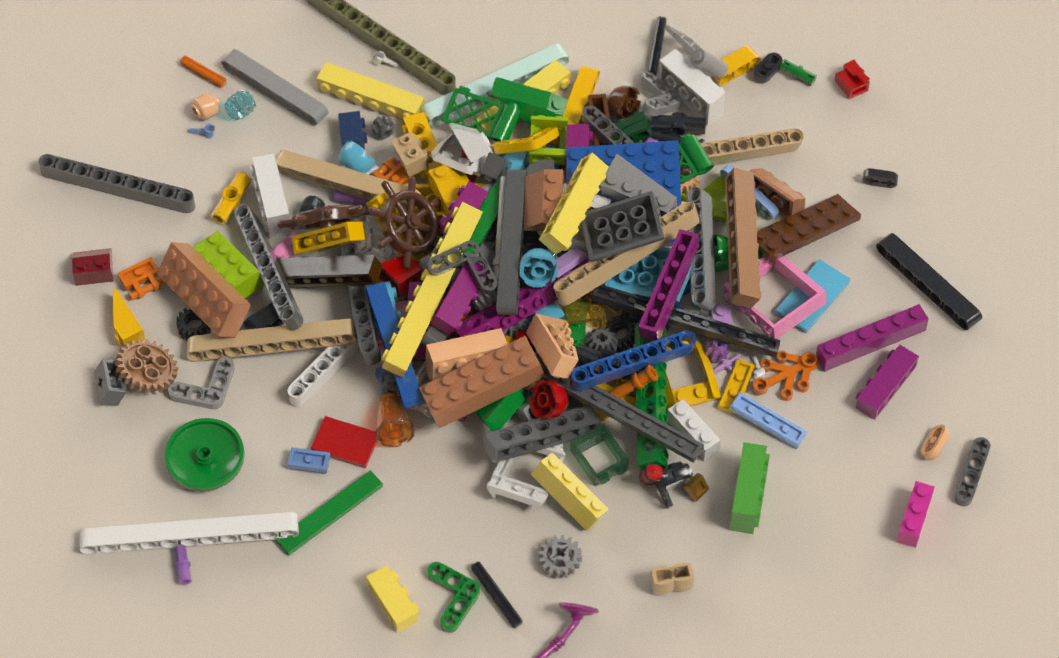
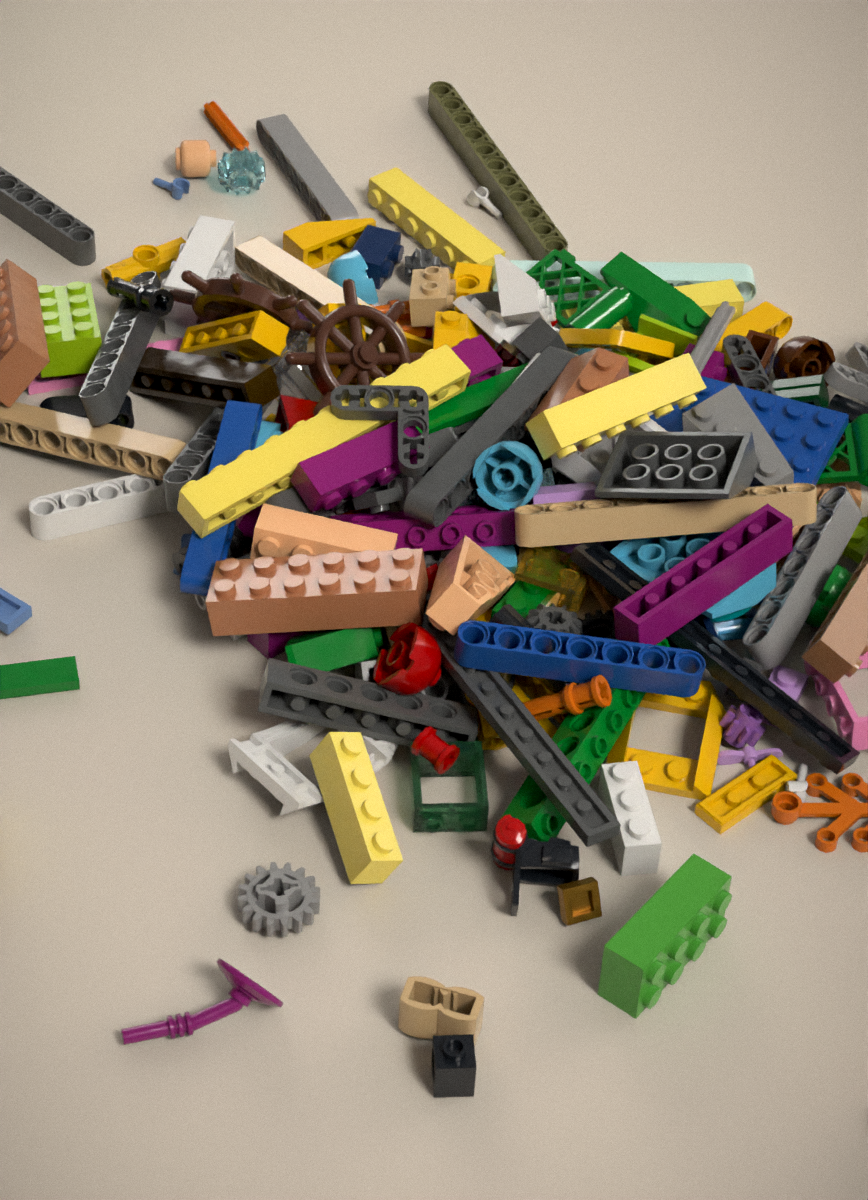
camera: 25 degrees right, 15 degrees down
(264, 232) = (146, 296): none -> black pin
(316, 134) = (324, 240): none -> yellow slope
(345, 441) = (70, 607): red tile -> none
(393, 422) = (151, 608): clear orange cone -> none
(460, 591) = (80, 878): green beam -> none
(476, 309) = (378, 500): none -> dark grey plate
(496, 594) = (136, 910): black axle -> none
(578, 121) = (712, 335): none -> light grey axle
(588, 441) = (435, 750): none -> red bush
(692, 601) = (453, 1066): none -> black brick
(768, 420) = (769, 861): light blue tile -> none

